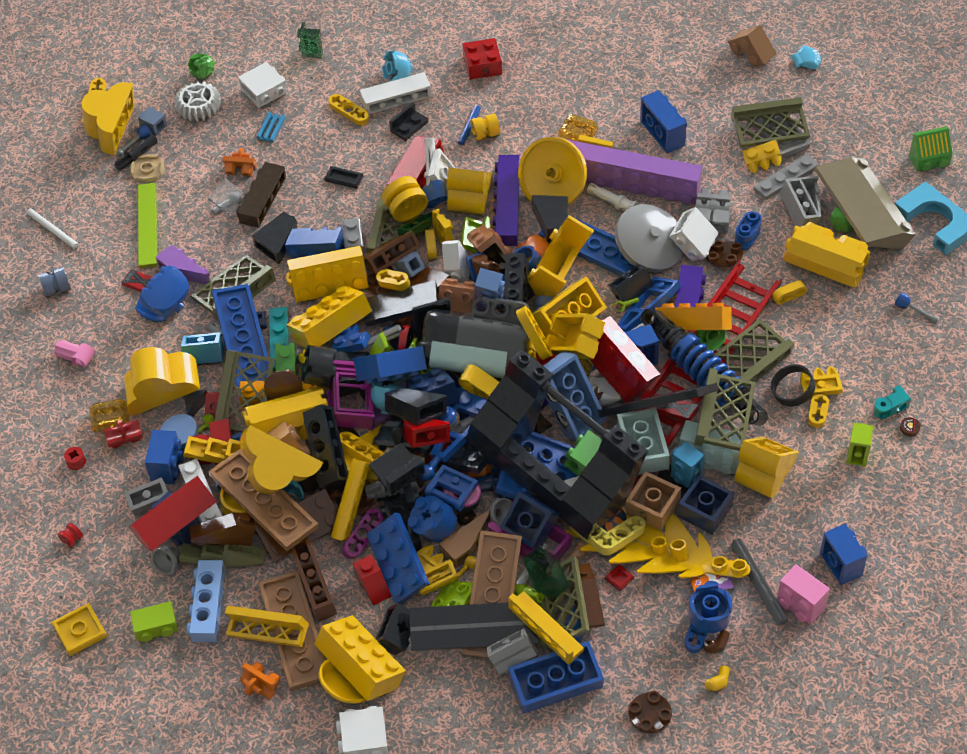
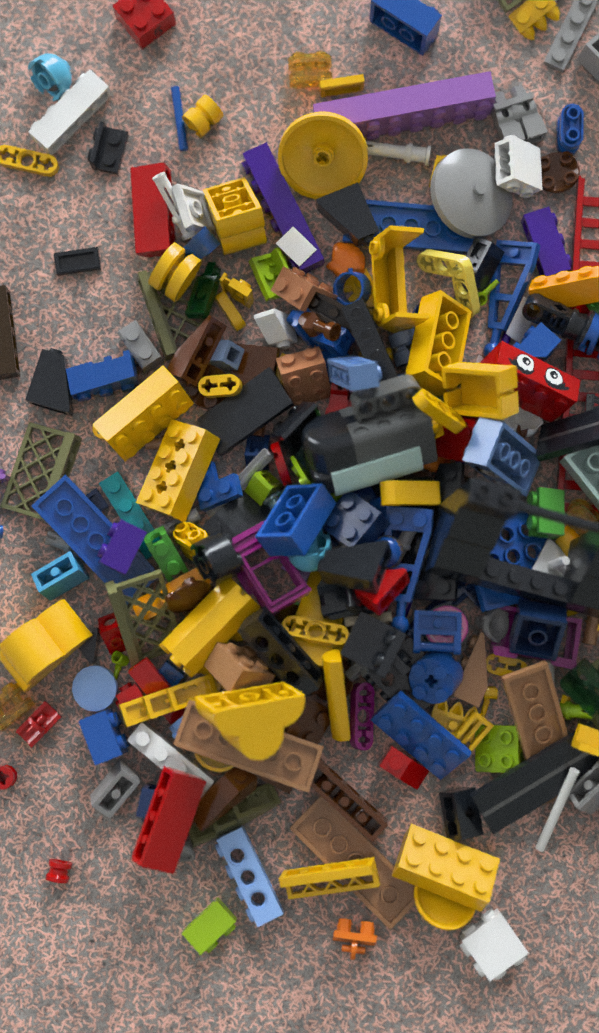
camera: 25 degrees left, 30 degrees up
(79, 629) = (136, 971): yellow plate -> none
(257, 337) = (121, 547): none -> dark purple brick
(472, 657) = (557, 809): none -> white bar
(501, 220) = (296, 246): none -> white sticker
(610, 274) = (460, 274): none -> light yellow beam

